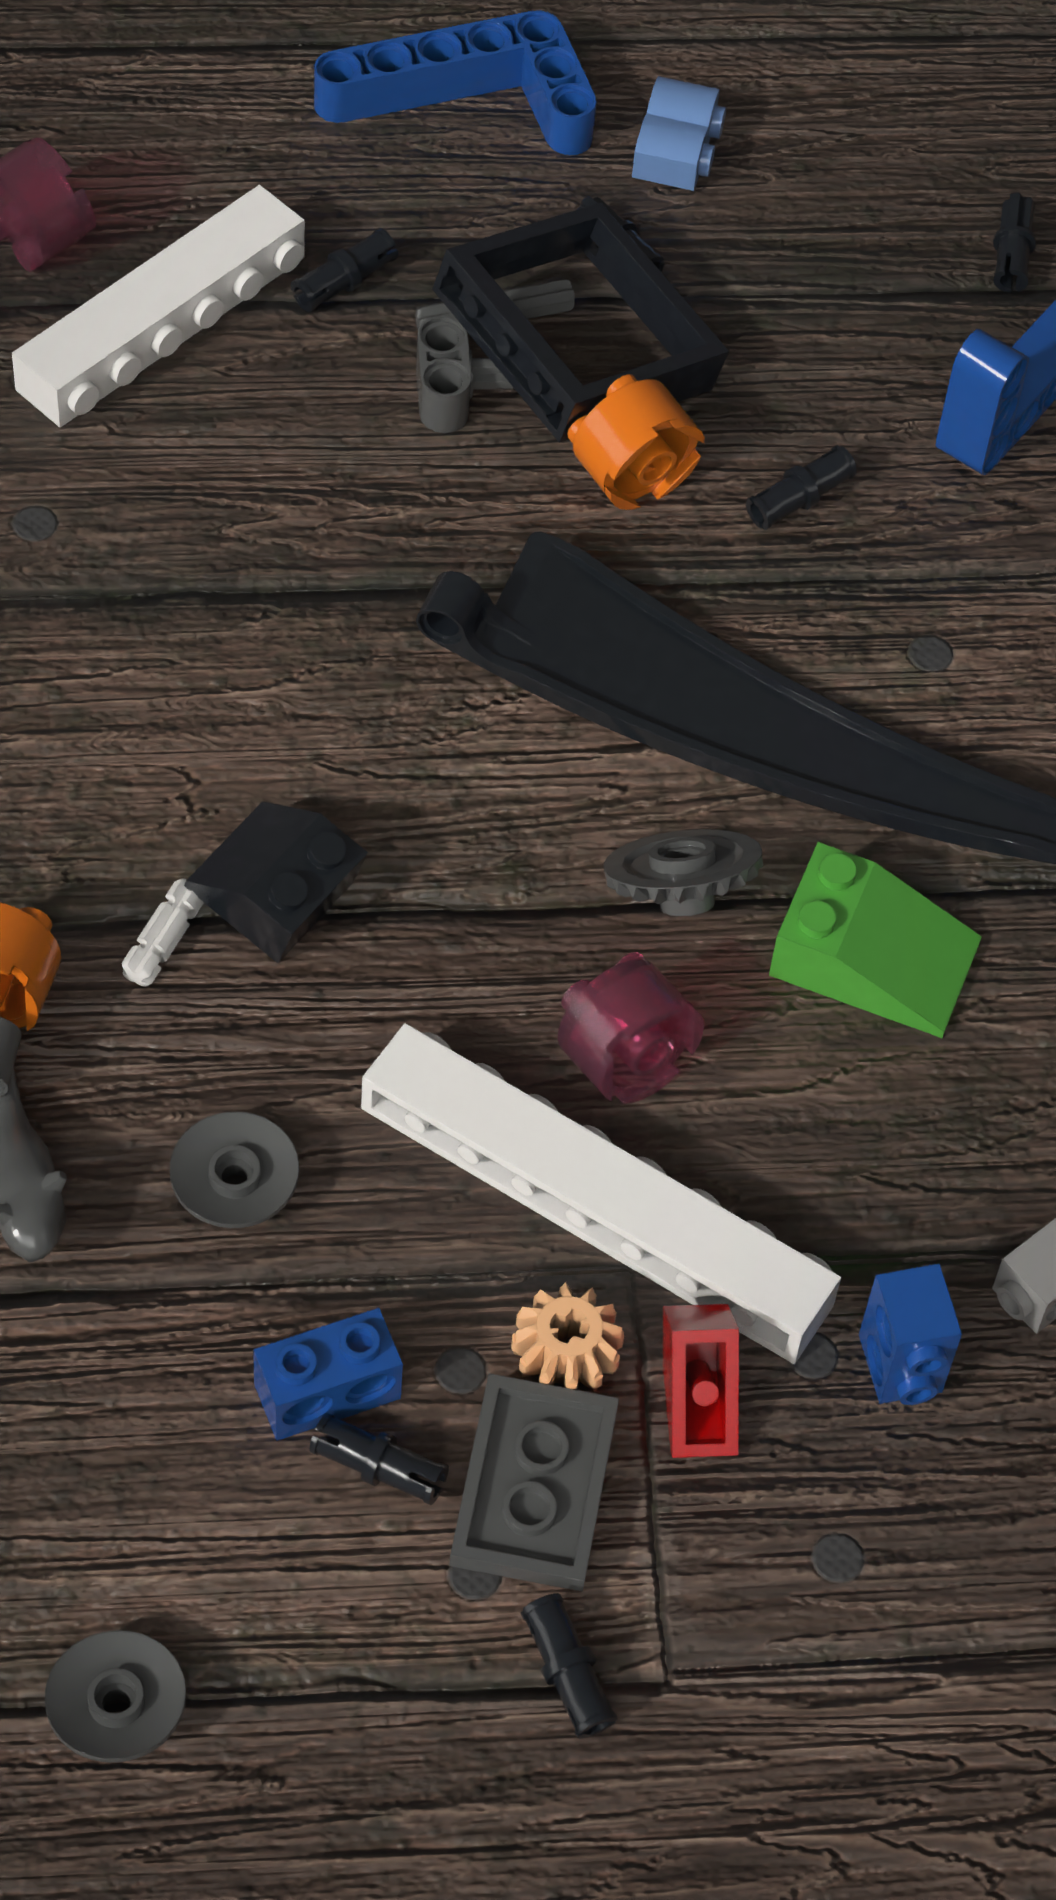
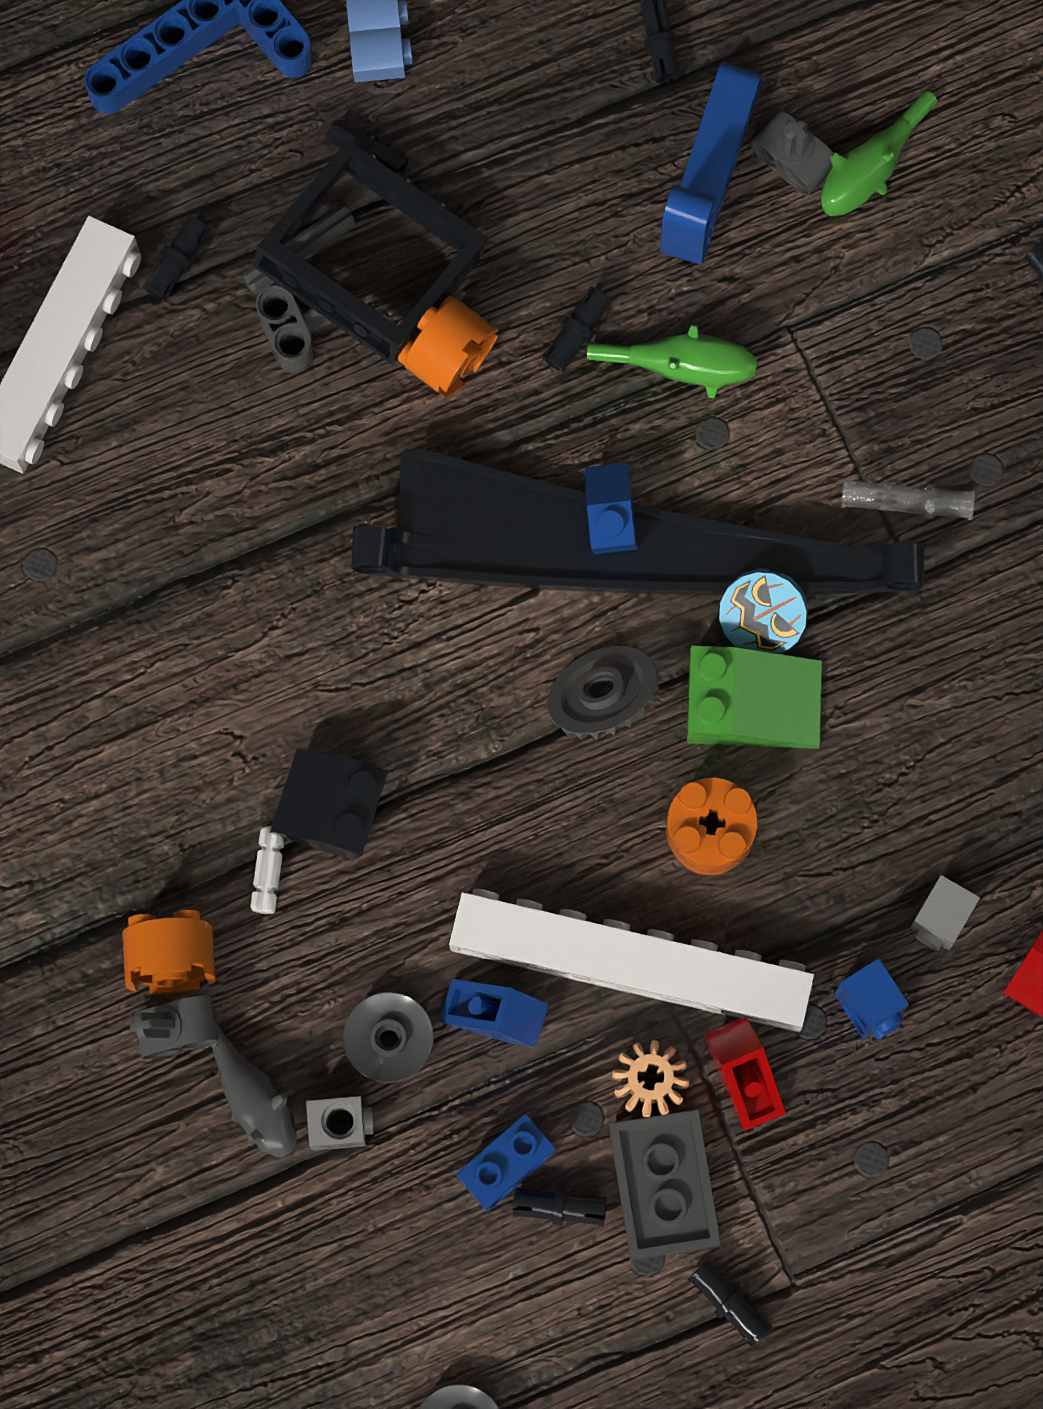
camera: 10 degrees left, 20 degrees up
(114, 1225) = (318, 1117): none -> light grey brick
(391, 1188) = (494, 1012): none -> blue slope
(628, 1029) = (611, 838): clear pink brick -> none
(766, 1064) = (711, 800): none -> orange brick
(768, 678) = (610, 508): none -> blue slope
(929, 554) = (685, 359): none -> bright green piece
(929, 843) = (763, 611): none -> tile

